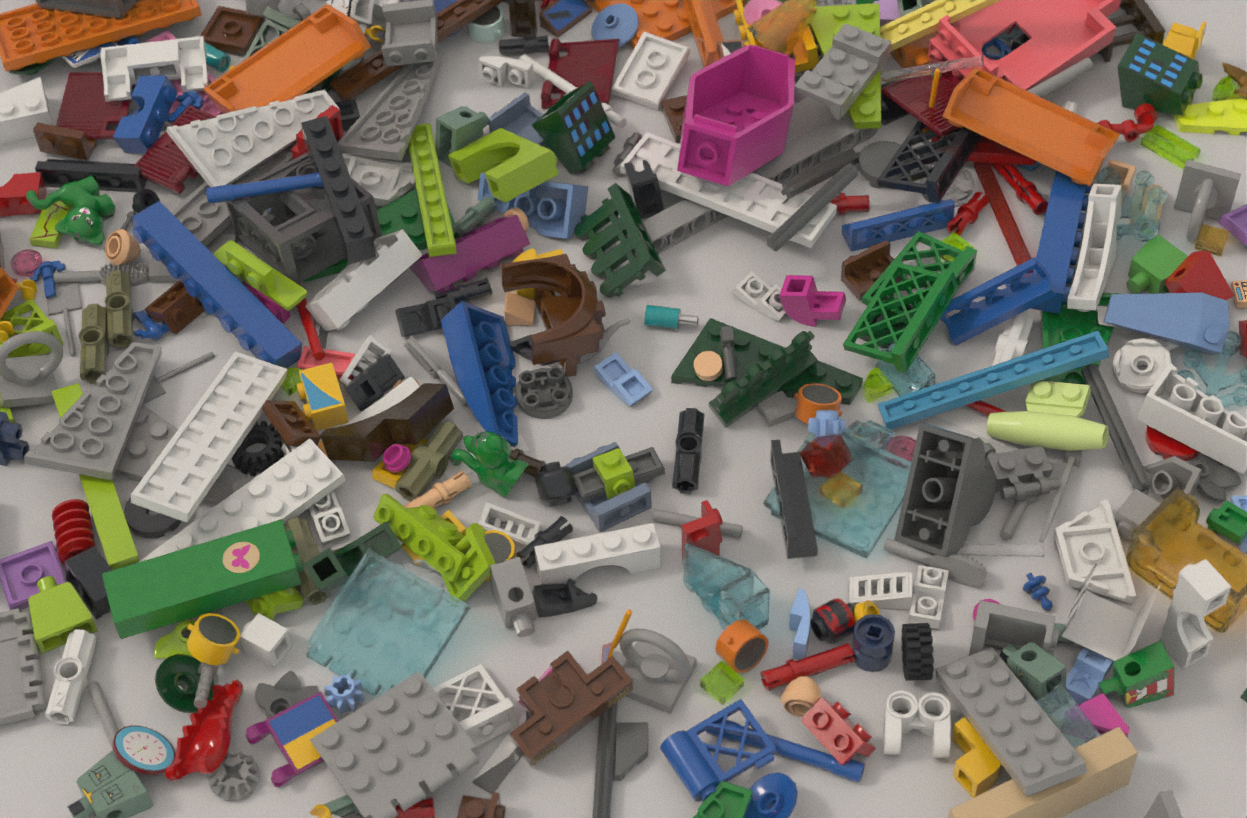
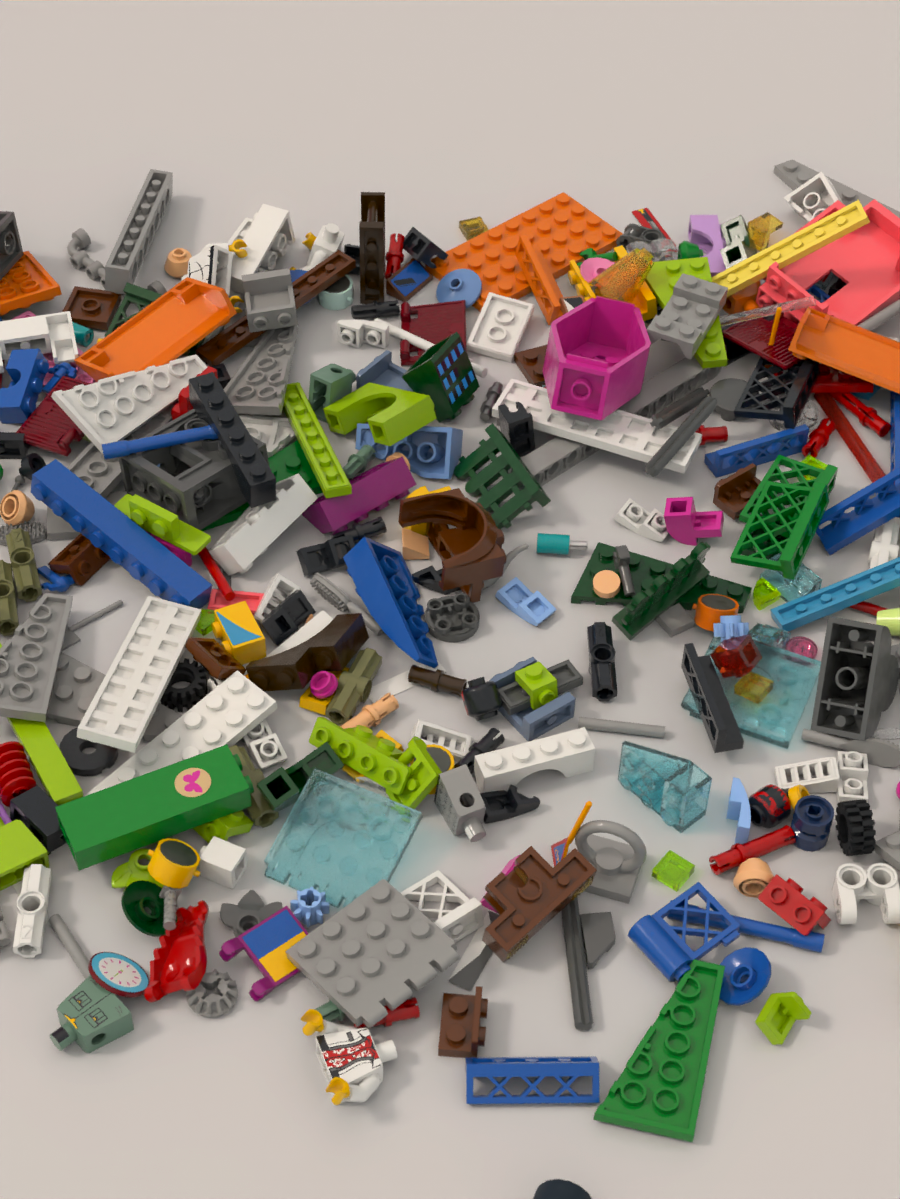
camera: 10 degrees left, 5 degrees down
(492, 461) = (423, 688): green animal -> none
(704, 531) = (633, 730): red bracket -> none
(741, 646) = (688, 834): orange piece -> none

